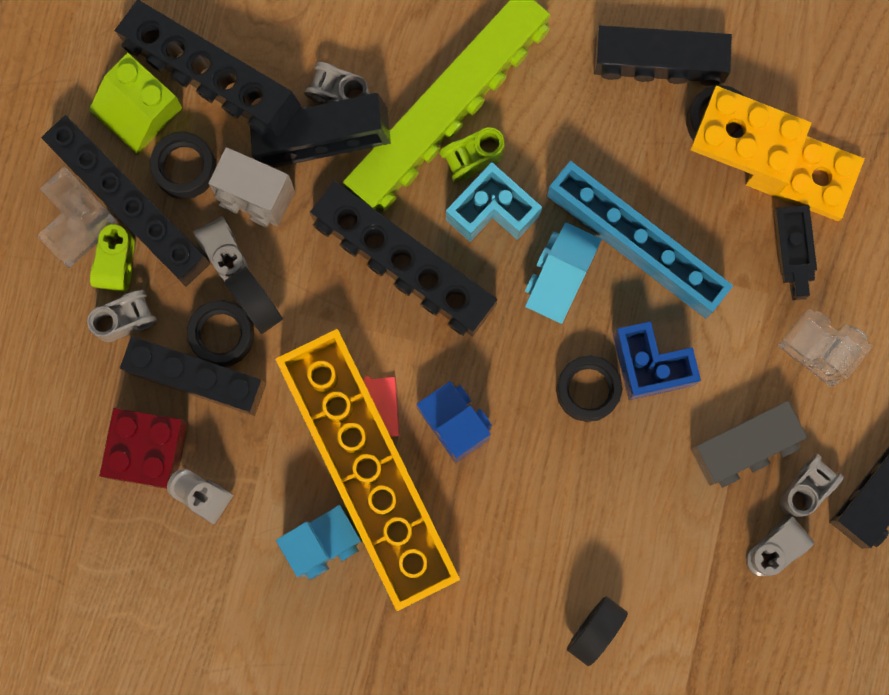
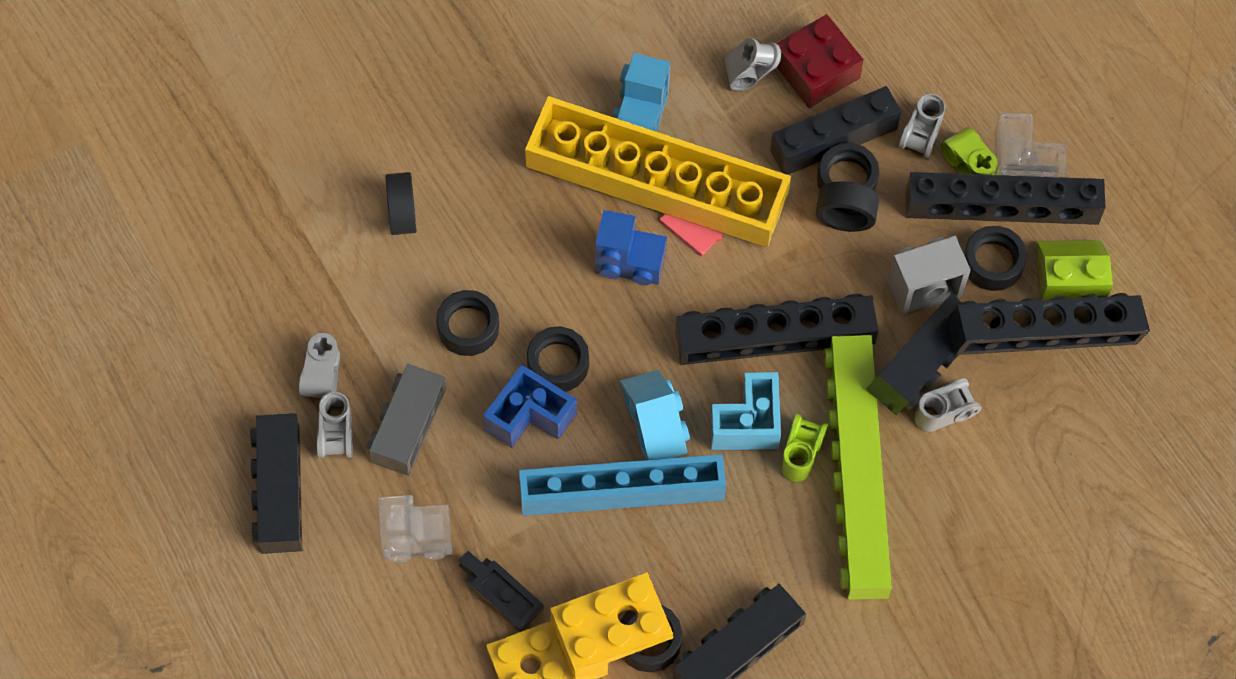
camera: 135 degrees right, 15 degrees down
(220, 247) = (908, 225): light grey piece -> none
(656, 483) = (462, 300): none -> black tyre

